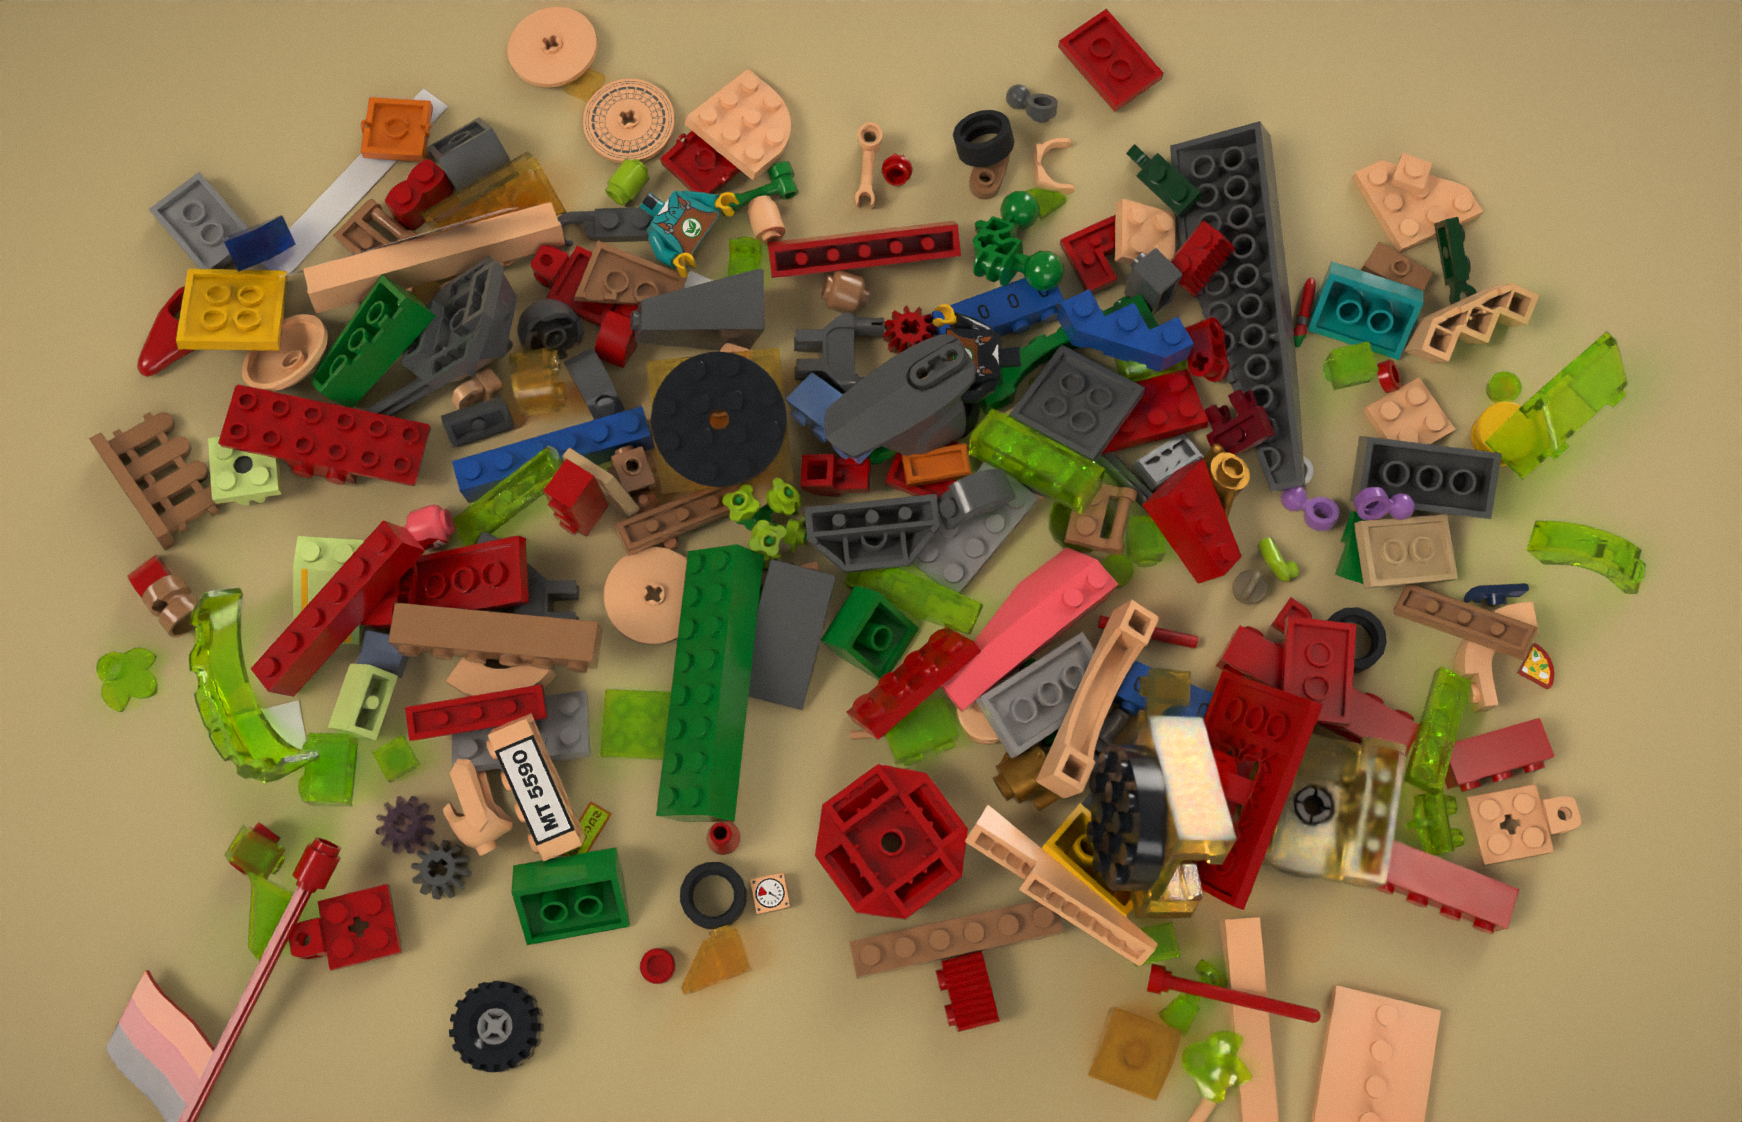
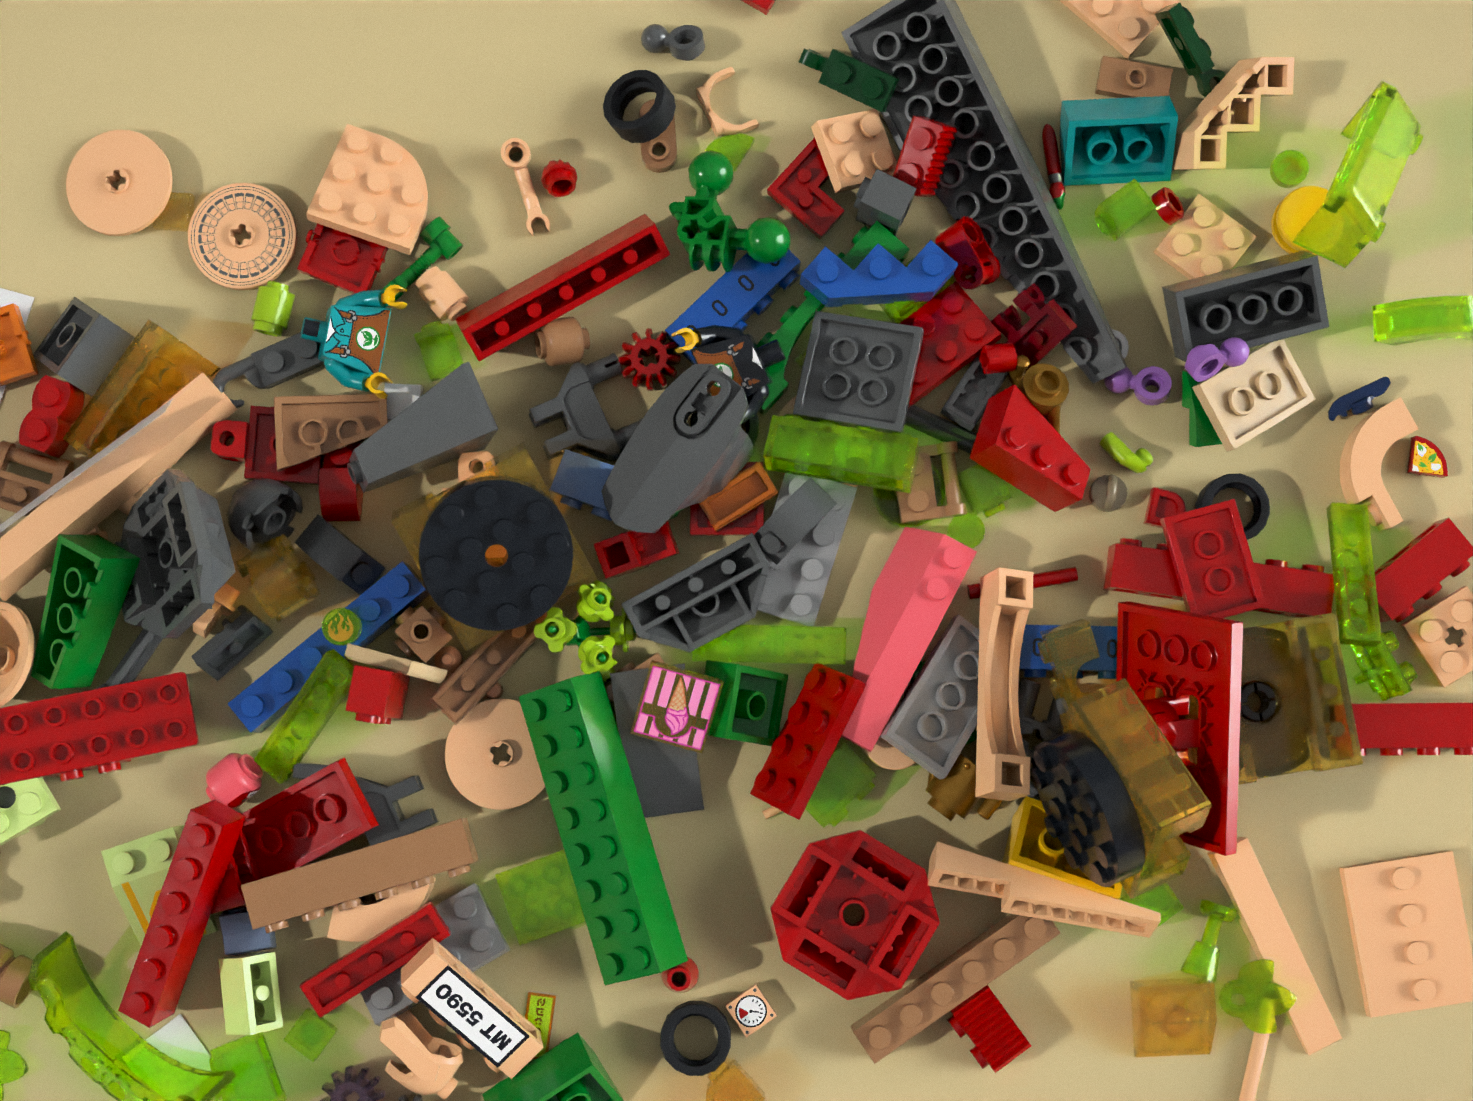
camera: 25 degrees left, 10 degrees up
(570, 434) = (341, 626): none -> clear neon green tile
(814, 607) = (676, 706): none -> tile
(1163, 980) = (1175, 937): red piece -> none
(1198, 439) = (998, 358): none -> red hose
(1466, 621) = (1341, 445): medium nougat tile -> none

